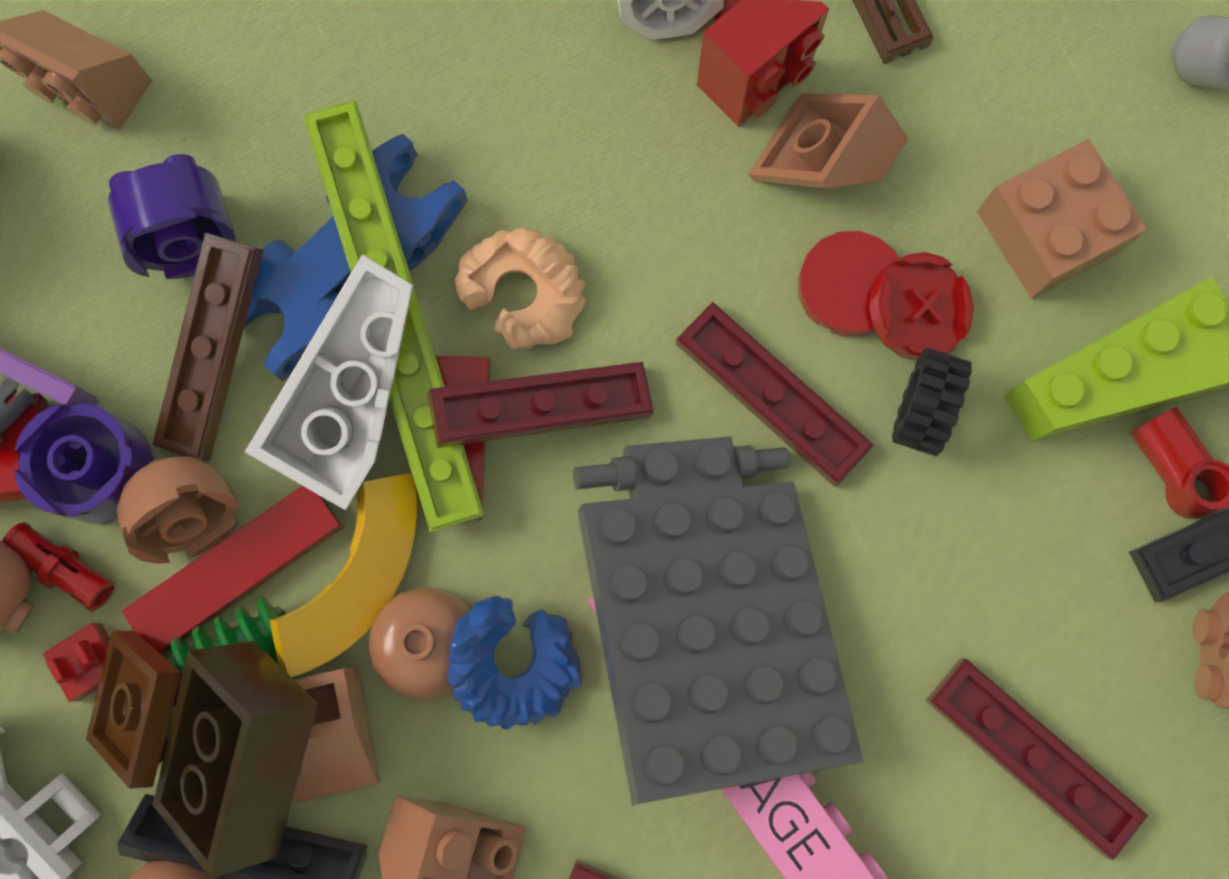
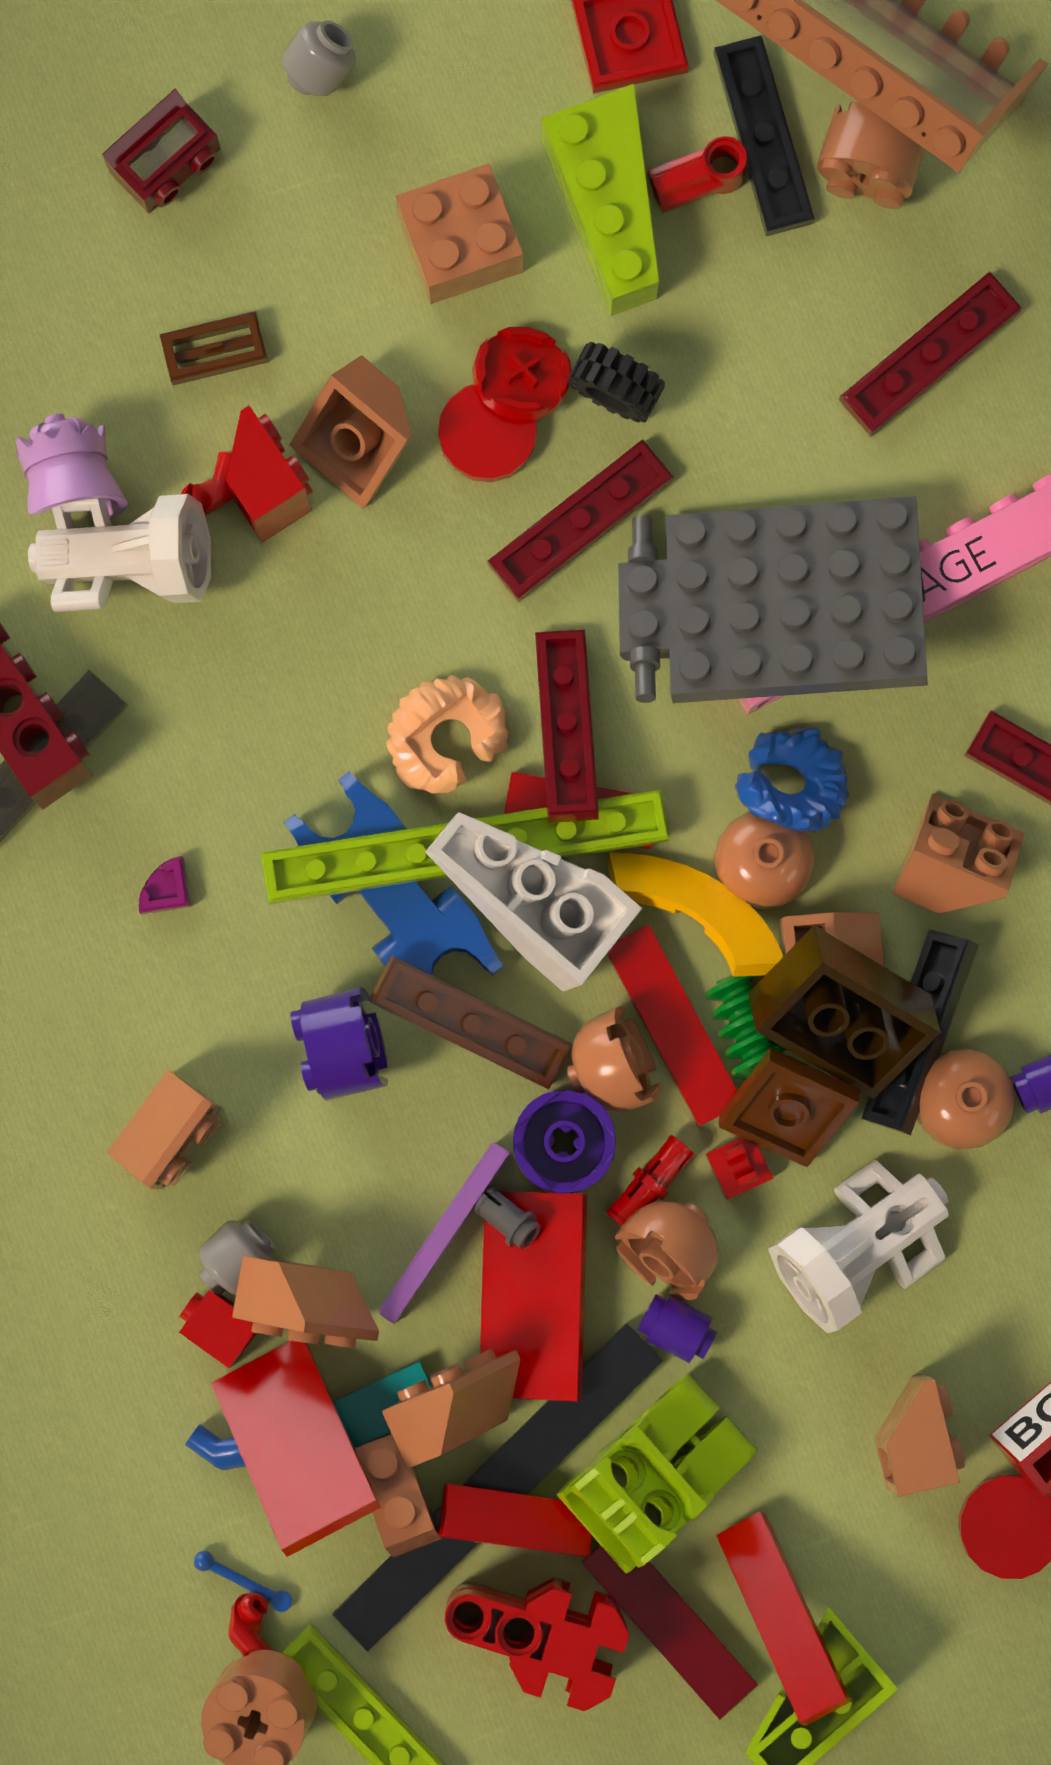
camera: 85 degrees left, 5 degrees up
(331, 43) = (165, 888): none -> magenta tile

